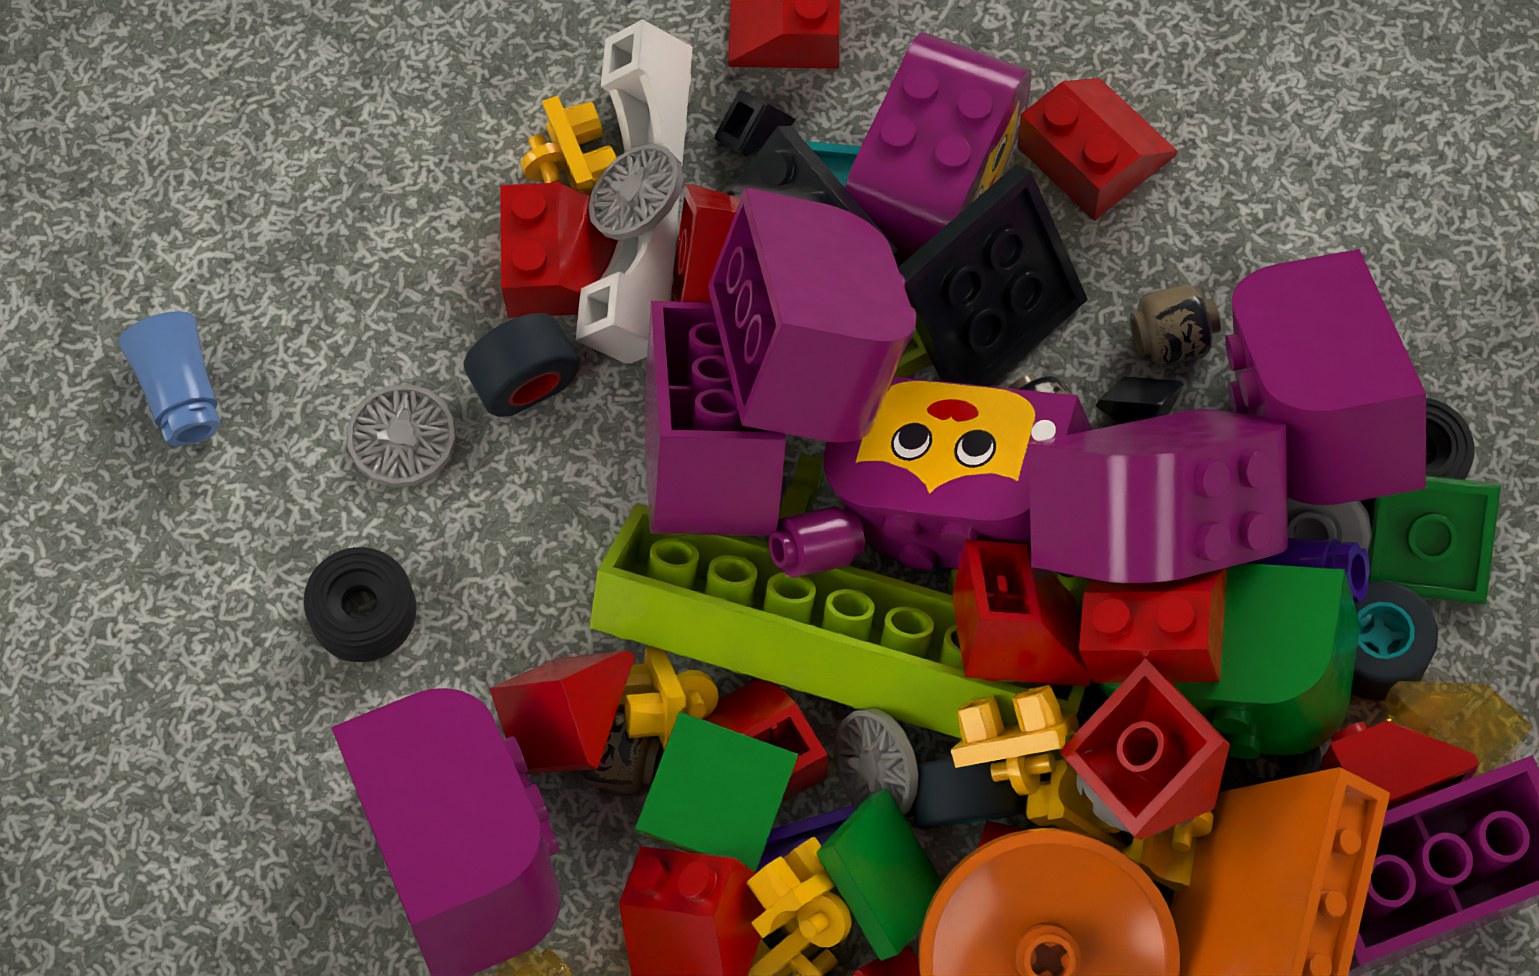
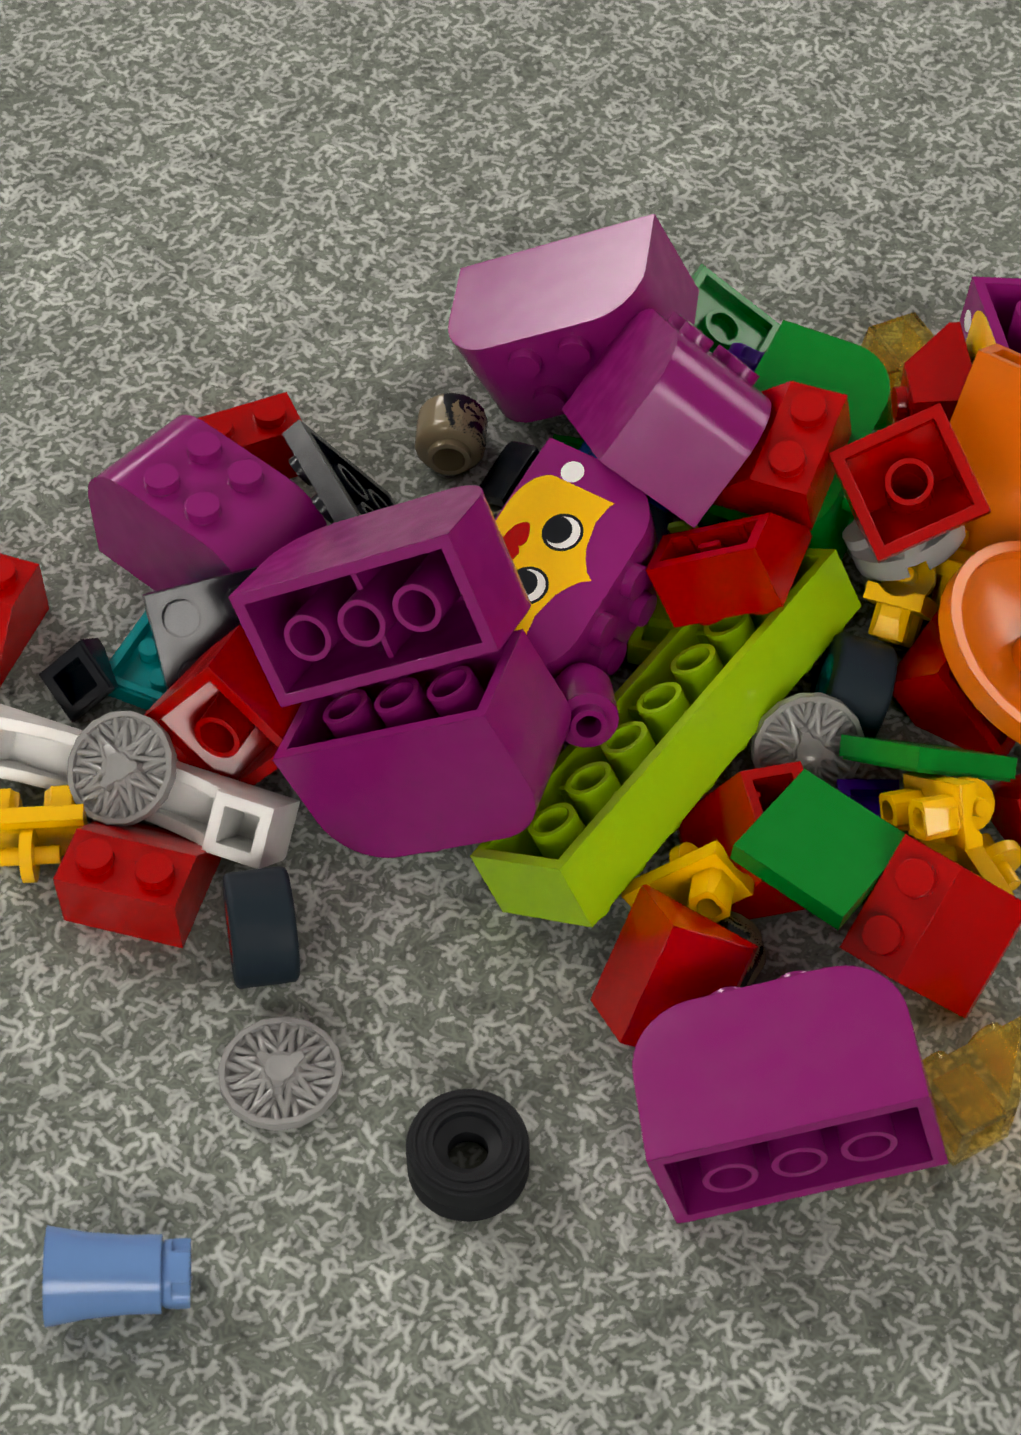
camera: 75 degrees left, 15 degrees down
(1039, 730) = (850, 600): yellow hips -> none

